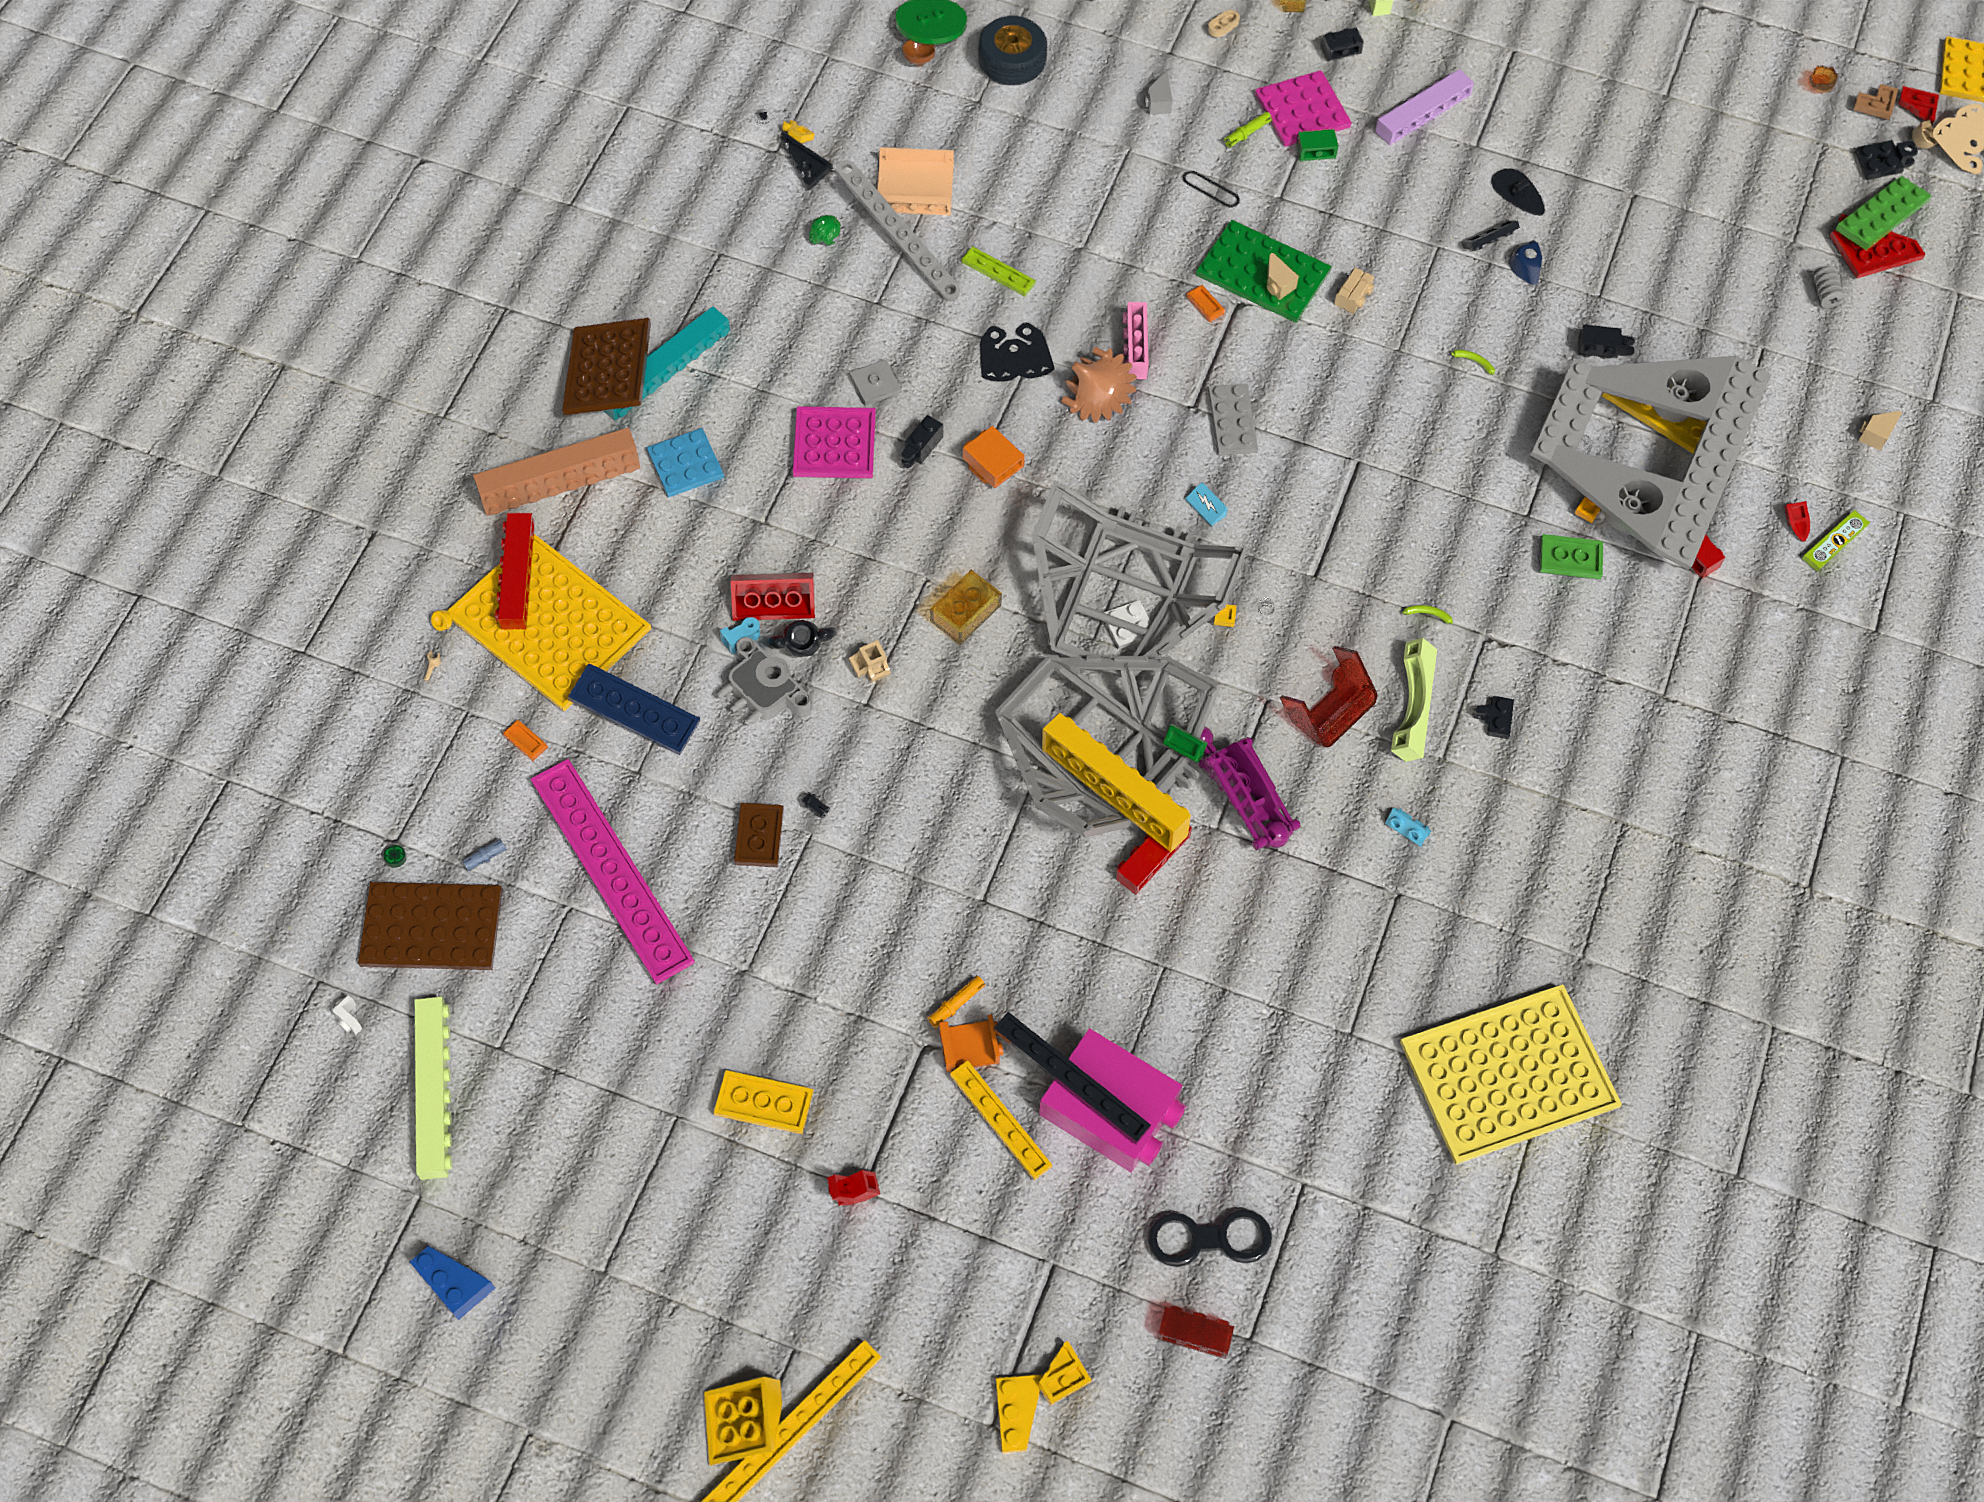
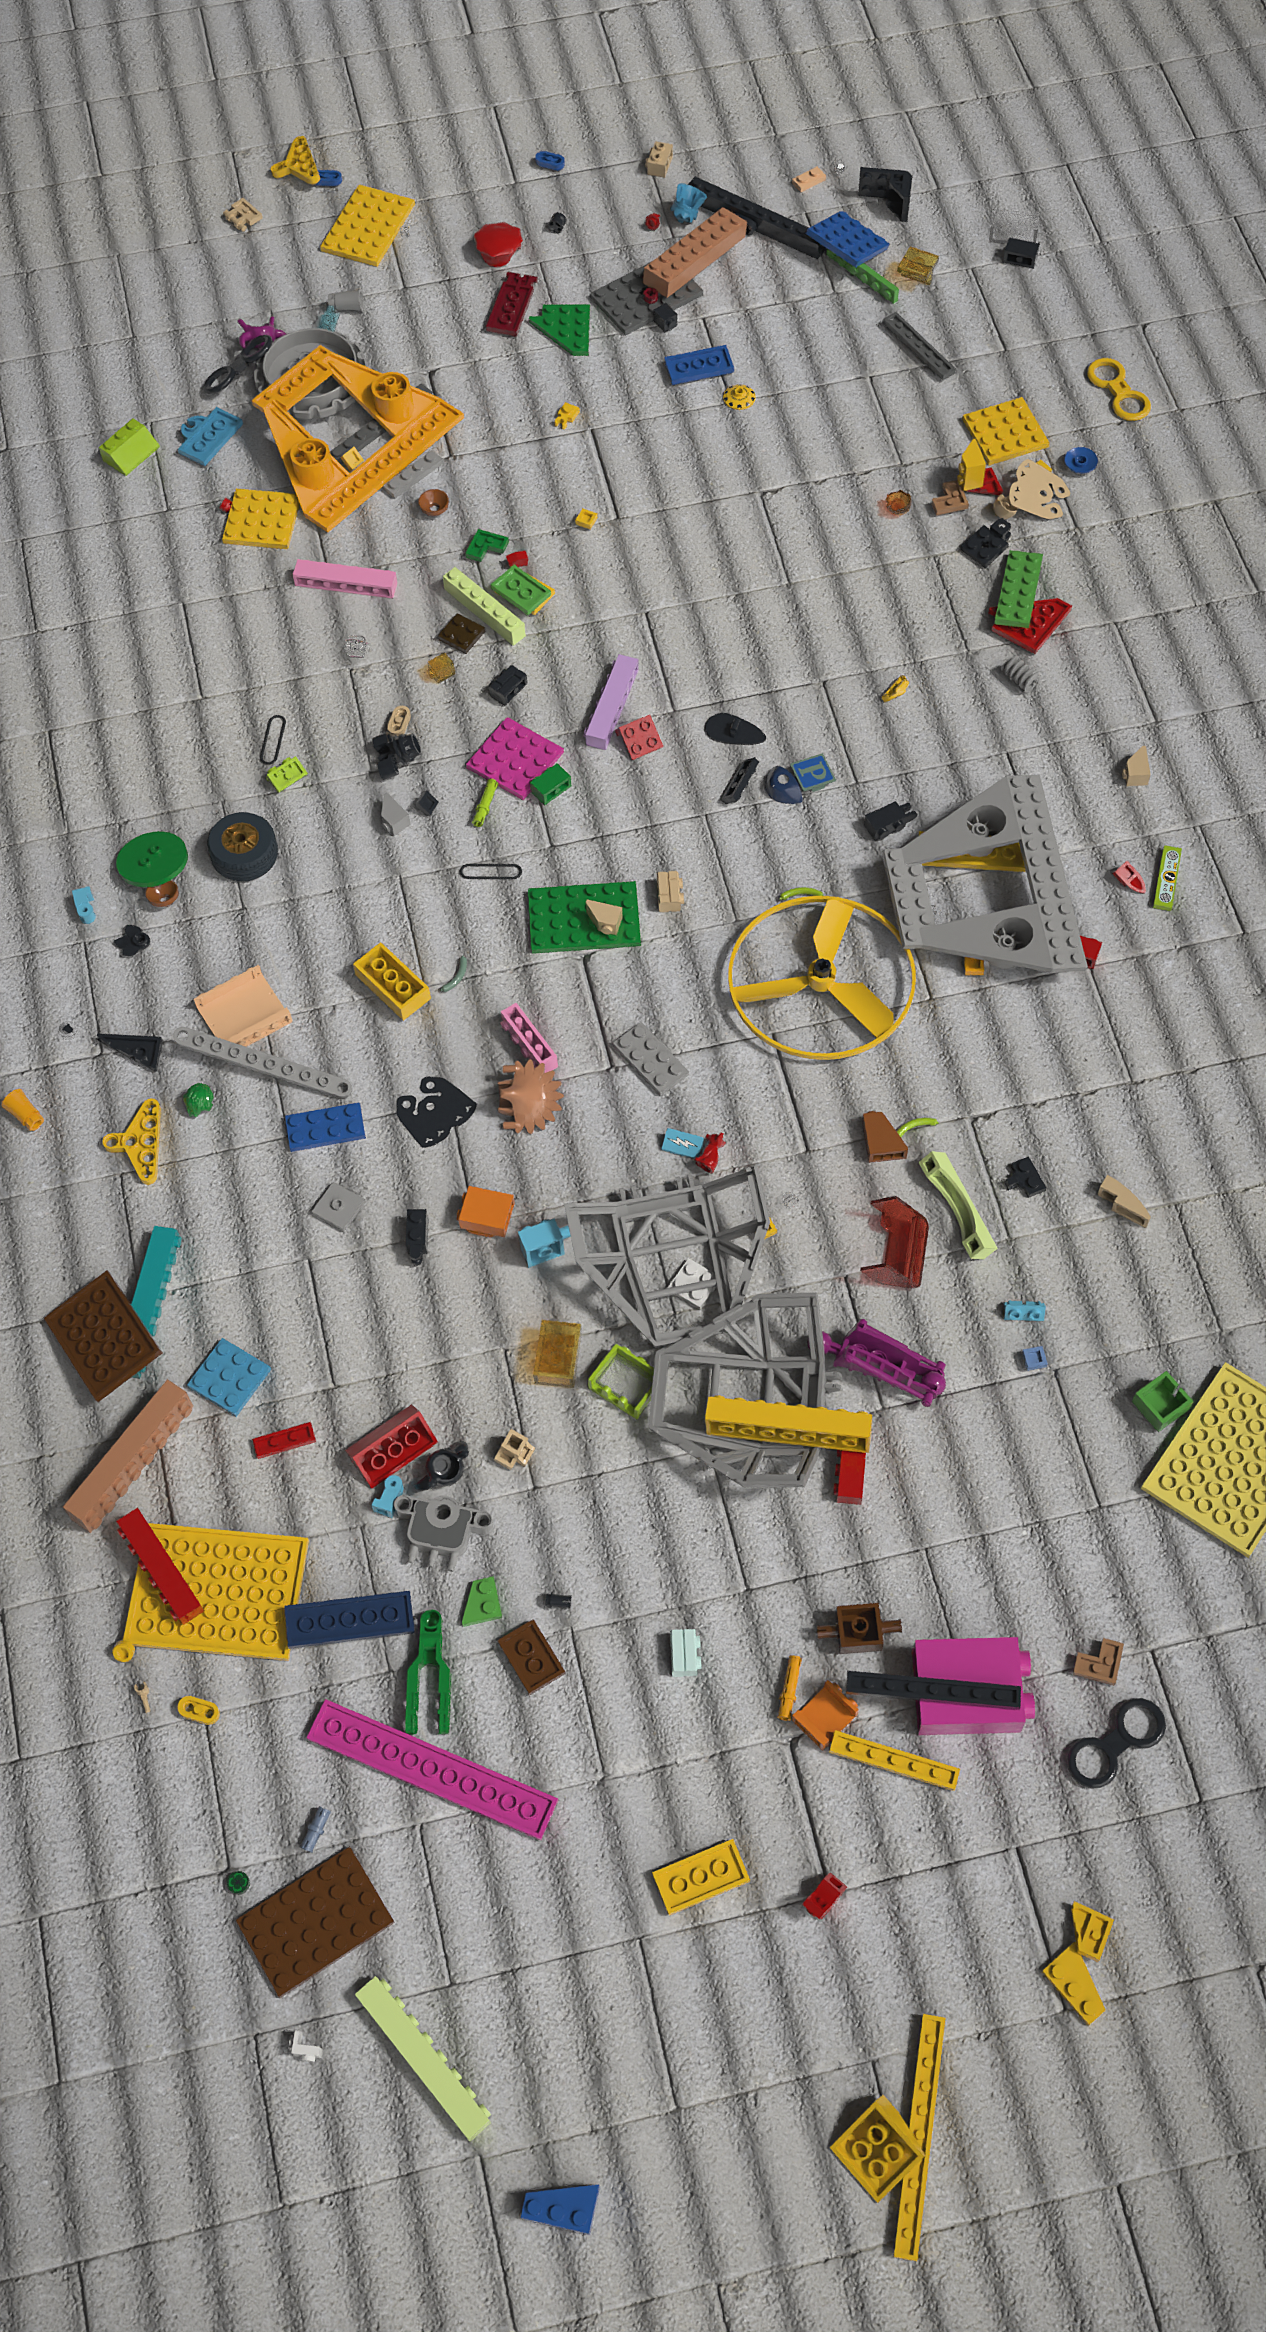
camera: 30 degrees left, 0 degrees up
(465, 704) = (199, 1710): none -> yellow plate
(525, 740) = (274, 1707): orange tile -> none
(679, 156) = (22, 1109): none -> light orange plant
(679, 777) = (429, 1653): none -> green piece
(691, 538) = (284, 1440): none -> red tile
(752, 767) = (482, 1603): none -> bright green wing
(759, 229) = (138, 1131): none -> yellow beam
(797, 132) = (109, 1026): yellow plate -> none
(834, 442) = (343, 1280): dark pink plate -> none
(849, 23) = (82, 902): none -> medium azure leg
(867, 77) = (130, 942): none -> black plate
(888, 914) = (683, 1652): none -> light aqua brick
(913, 313) = (325, 1127): none -> blue plate
(998, 271) = (369, 1047): lime tile -> none
(1005, 662) = (623, 1380): none -> window
(1020, 508) = (542, 1241): none -> medium azure brick
(1041, 984) = (869, 1620): none -> reddish brown brick
(1055, 227) = (392, 981): none -> yellow brick
(1094, 13) = (286, 774): none -> lime bracket
(1116, 258) = (459, 976): none -> sand green piece
(1185, 743) = (816, 1356): green tile -> none
(1195, 1332) = (1160, 1824): clear red brick -> none
(1196, 101) = (426, 803): none -> black plate
(1201, 43) = (395, 750): none -> black beam
(1205, 303) = (558, 973): orange tile -> none
(1221, 528) = (709, 1158): none -> red animal
(1244, 1167) = (1100, 1668): none -> medium nougat plate
(1386, 871) = (1034, 1358): none -> medium blue plate
(1388, 604) = (882, 1139): none -> dark orange slope
(1427, 149) = (640, 737): none -> bracket
(1438, 435) = (821, 977): none -> yellow piece
(1473, 979) = (1159, 1404): none -> bright green piece
(1563, 264) = (813, 773): none -> piece
(1571, 556) = (988, 1012): bright green plate -> none
(1573, 789) = (1124, 1201): none -> tan slope
(1698, 237) = (896, 689): none -> yellow plate
(1915, 81) = (971, 467): none -> yellow slope

